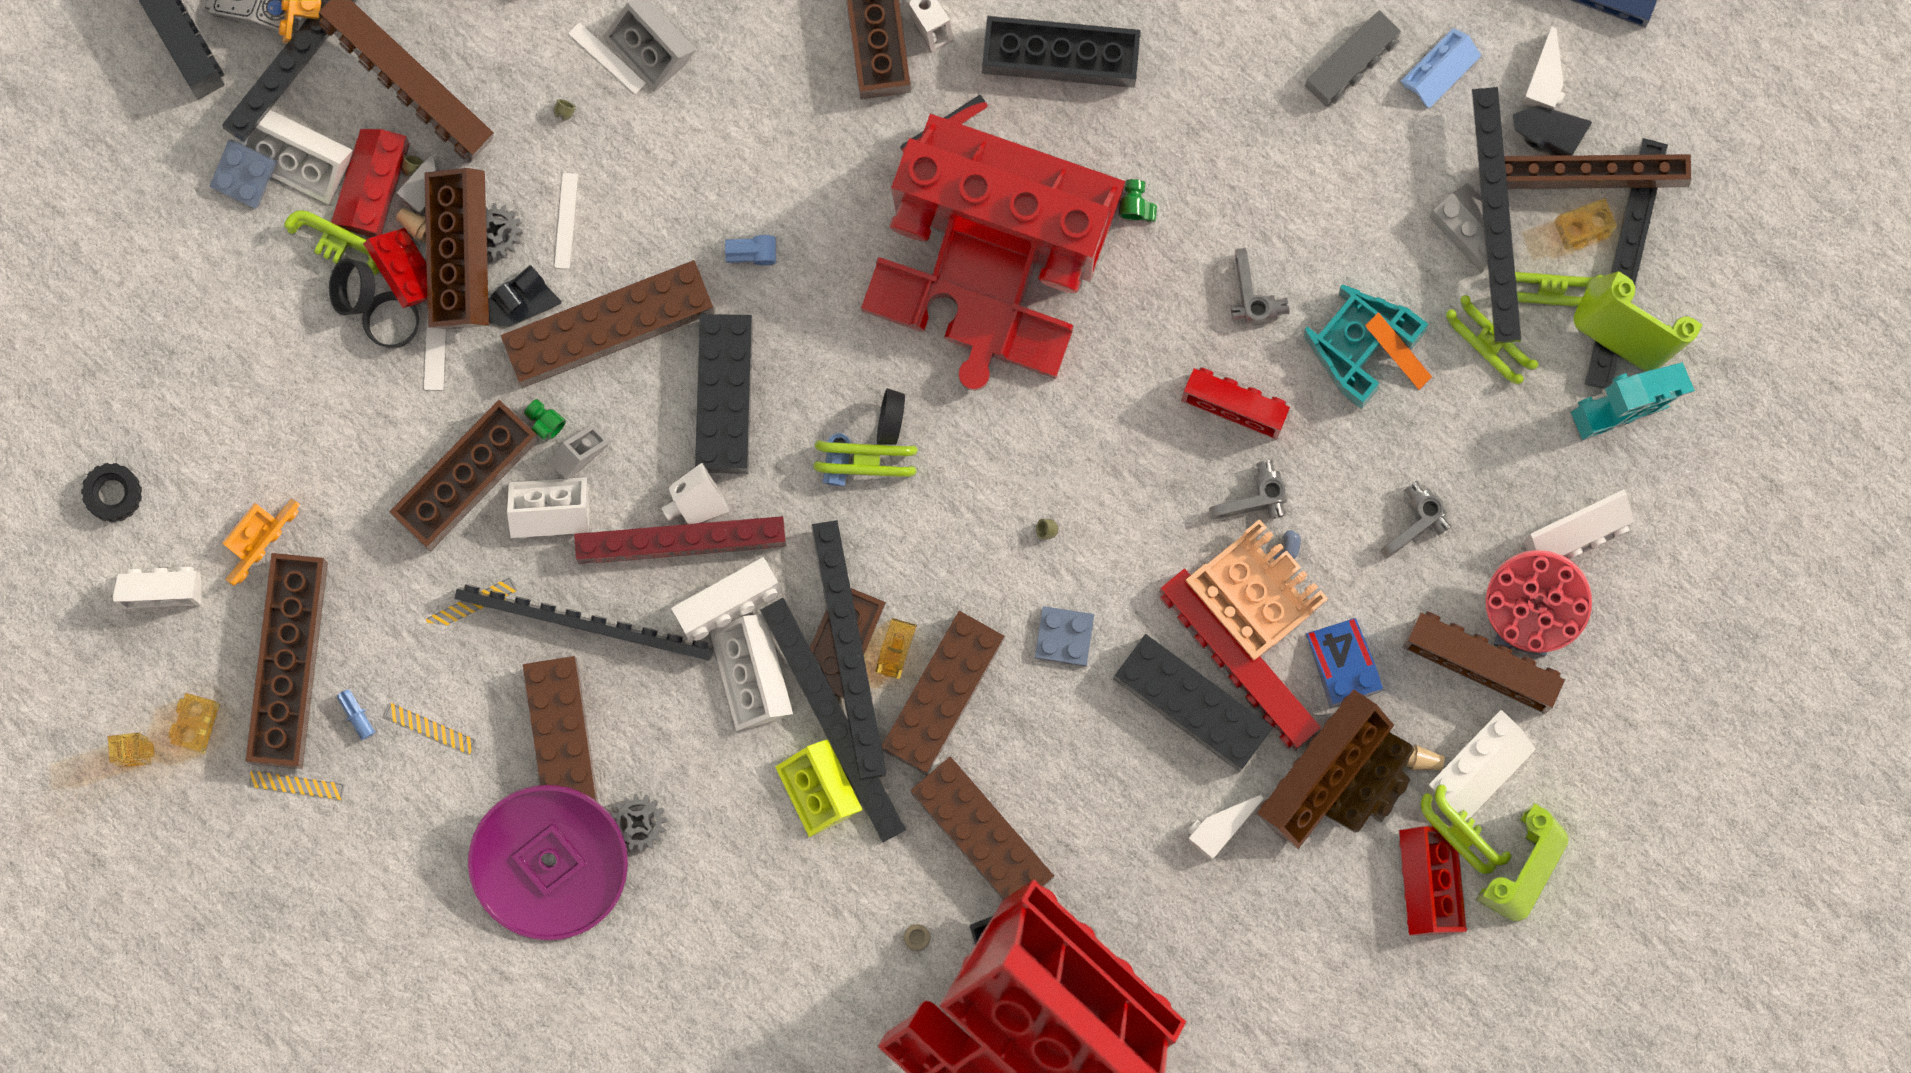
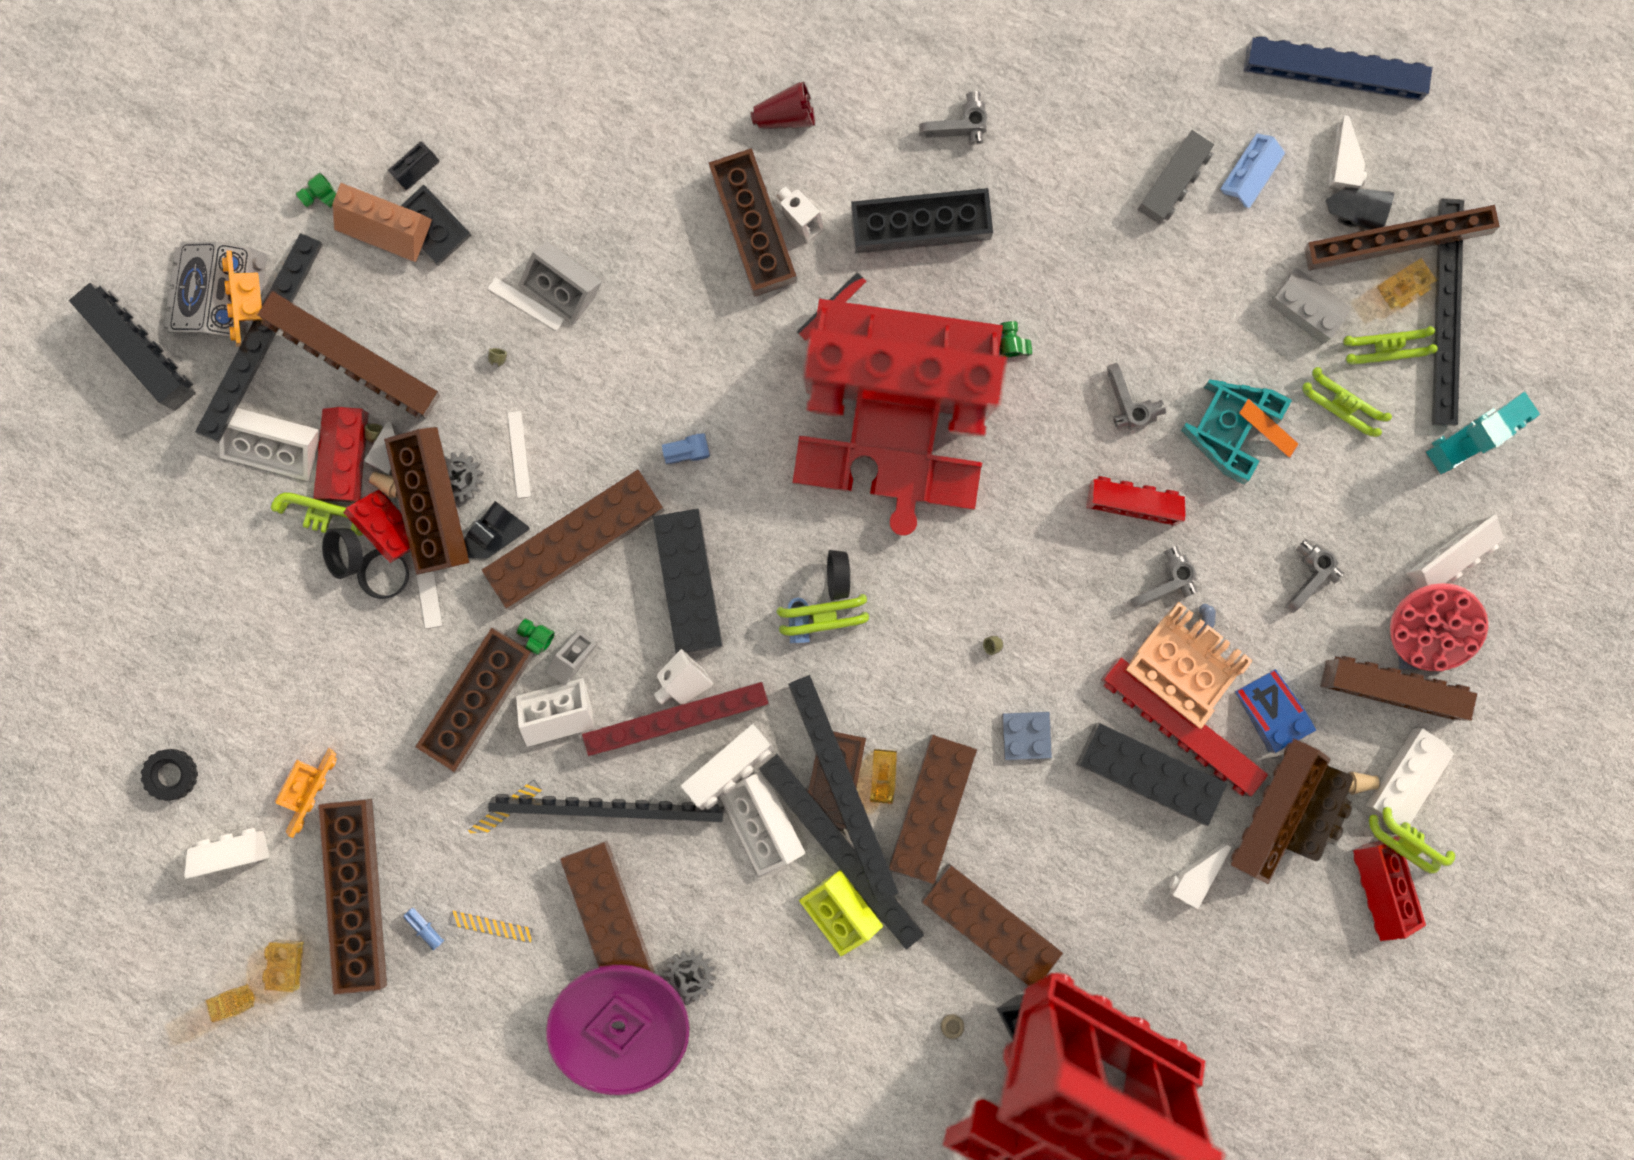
camera: 10 degrees left, 5 degrees up
(243, 173) = (227, 469): sand blue plate -> none
(296, 785) = (384, 999): sticker -> none
(1496, 215) = (1333, 292): black plate -> none
(1519, 898) = (1476, 861): lime windscreen -> none
(1626, 329) = (1454, 363): lime windscreen -> none

